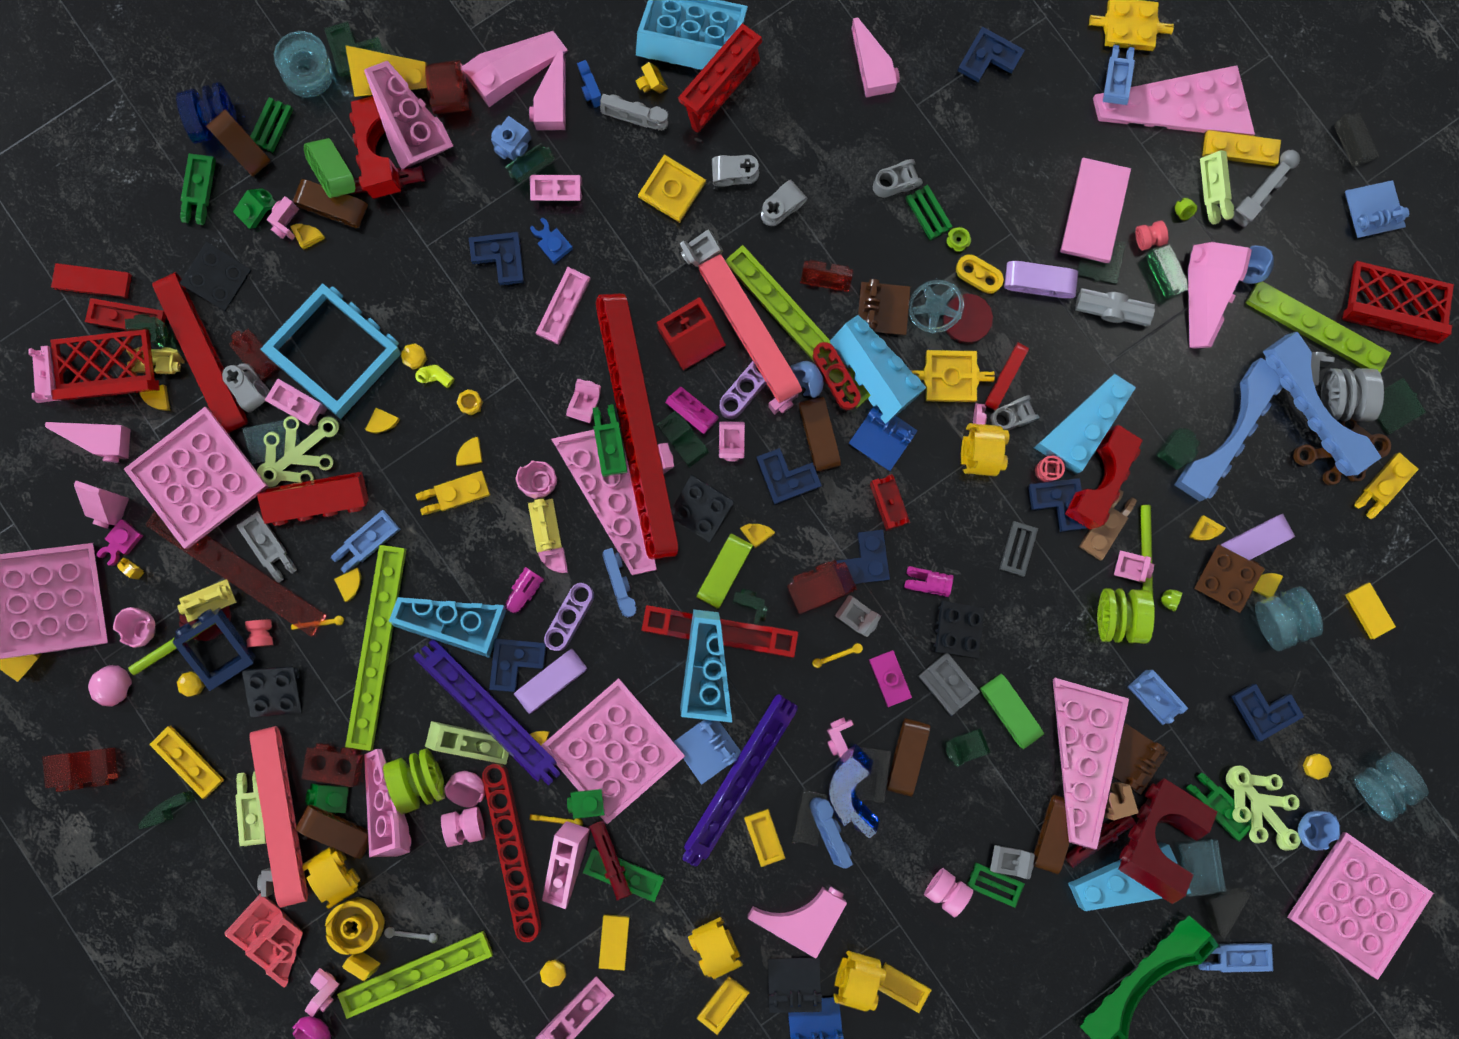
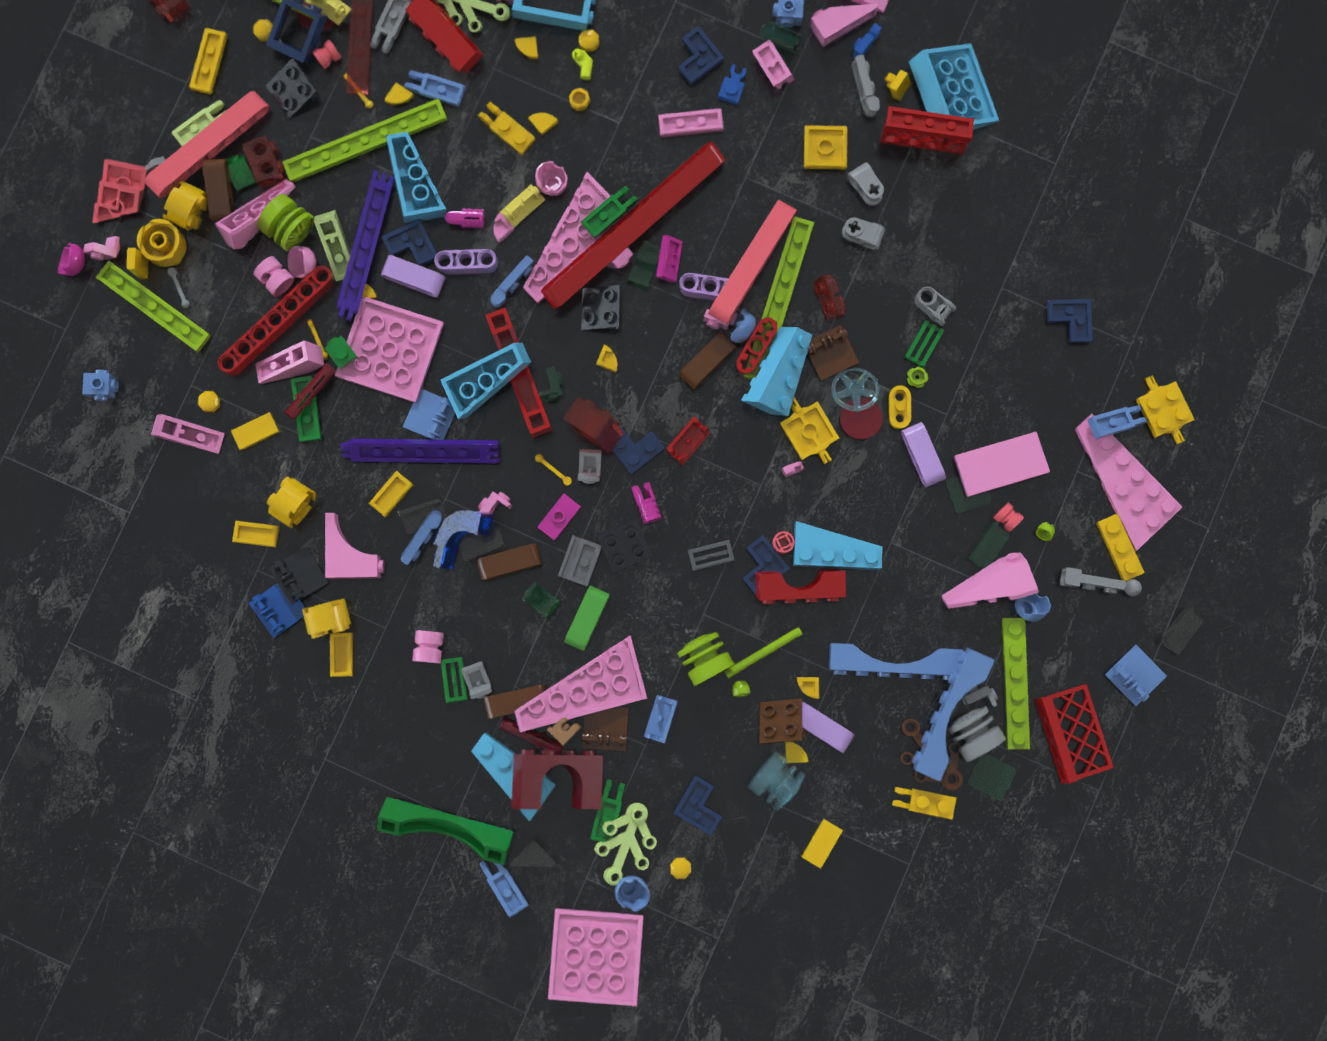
camera: 65 degrees right, 0 degrees up
(163, 811) = (164, 66): clear green slope -> none
(584, 400) = (633, 178): bright pink bracket -> none
(691, 333) = (724, 224): red slope -> none
(701, 248) = (792, 194): light grey bracket -> none
(724, 571) = (565, 351): lime beam -> none
(731, 440) = (664, 300): bright pink bracket -> none
(785, 483) = (656, 356): dark blue plate -> none
(875, 64) = (1010, 239): bright pink slope -> none
(882, 441) = (730, 411): blue hinge -> none
(984, 449) = (767, 484): yellow brick -> none
(1006, 376) = (834, 471): red beam -> none
(1016, 414) = (809, 493): light grey piece -> none
(1100, 539) = (758, 612): medium nougat hinge -> none
(1115, 307) = (936, 521): light grey piece -> none
(1133, 567) = (747, 646): bright pink bracket -> none
(1179, 448) = (858, 630): clear green brick -> none
(1203, 861) = (554, 823): clear light blue plate -> none
(1216, 186) = (1076, 544): yellowish green hinge -> none
(1391, 786) = (695, 927): clear light blue wheel -> none

